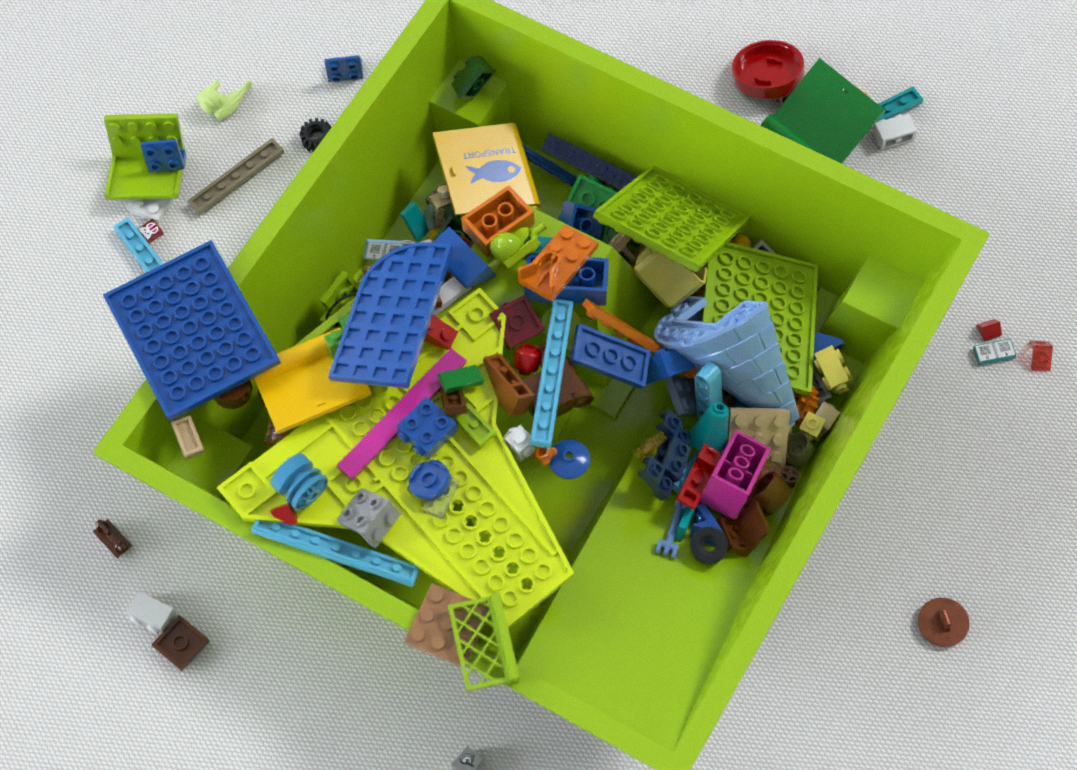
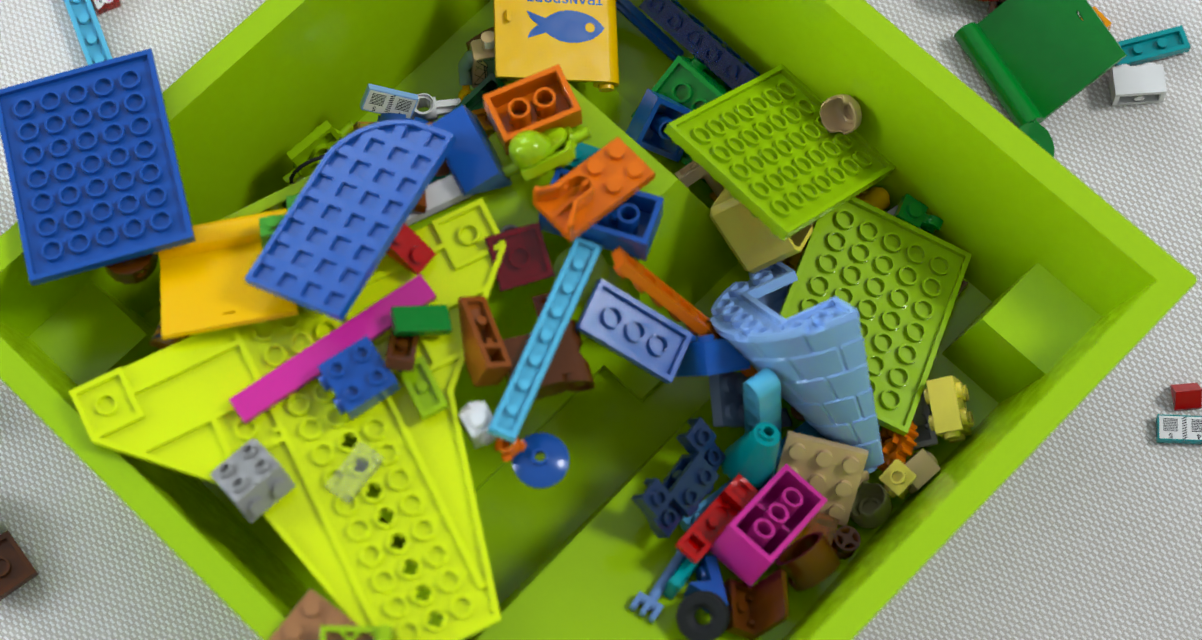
camera: 15 degrees right, 5 degrees up
(187, 437) = (54, 311): tan tile -> none
(285, 513) = (147, 447): red tile -> none
(299, 481) = (172, 412): dark azure wheel -> none
(339, 551) = (205, 514): medium azure tile -> none
(414, 221) = (443, 70): teal tile -> none
(429, 480) = (344, 449): blue tile -> none
(527, 359) = (520, 310): red head -> none
(650, 445) = (662, 460): clear yellow axle -> none
(705, 187) = (841, 114): none -> tan hair
(771, 244) = (914, 212): none -> green plate
(823, 341) = (946, 365): blue slope -> none

